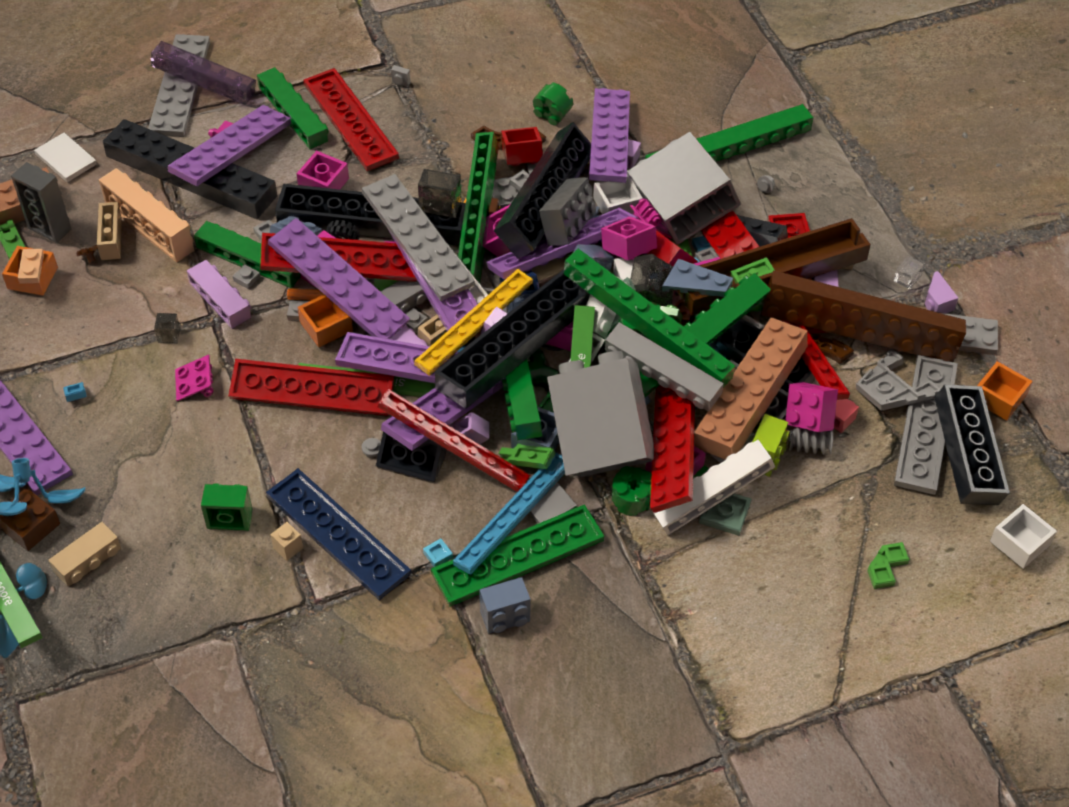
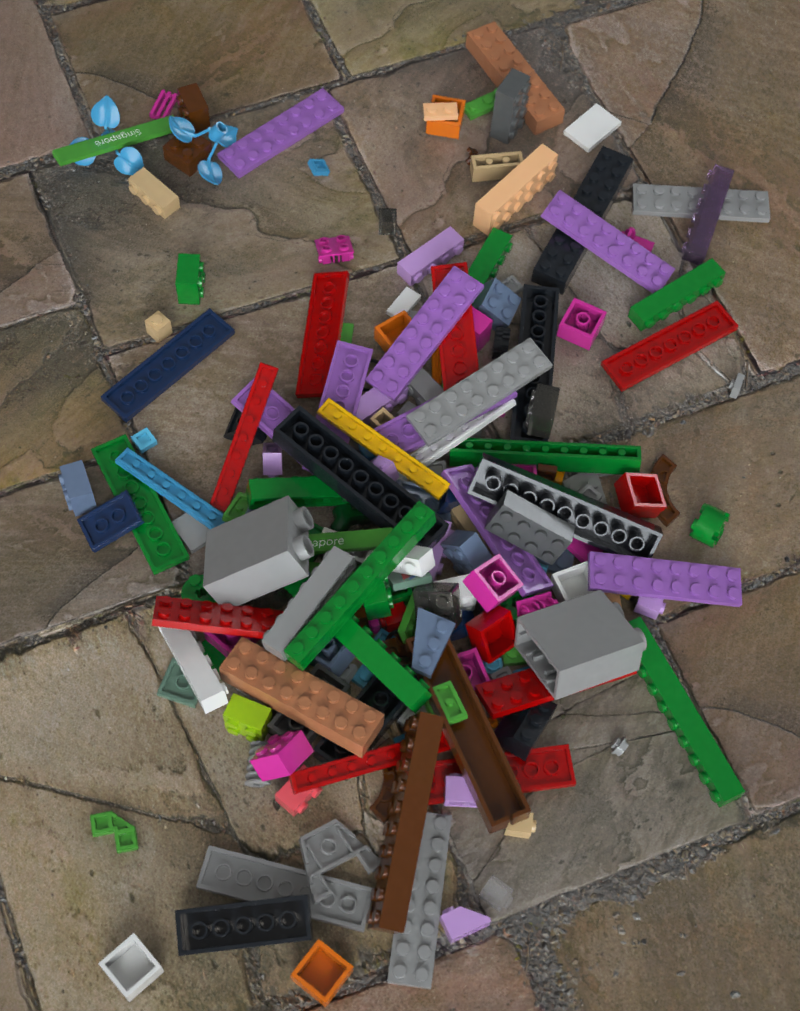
camera: 85 degrees right, 10 degrees up
(276, 321) = (405, 301): none -> white tile
(542, 578) = (110, 521): none -> dark blue tile

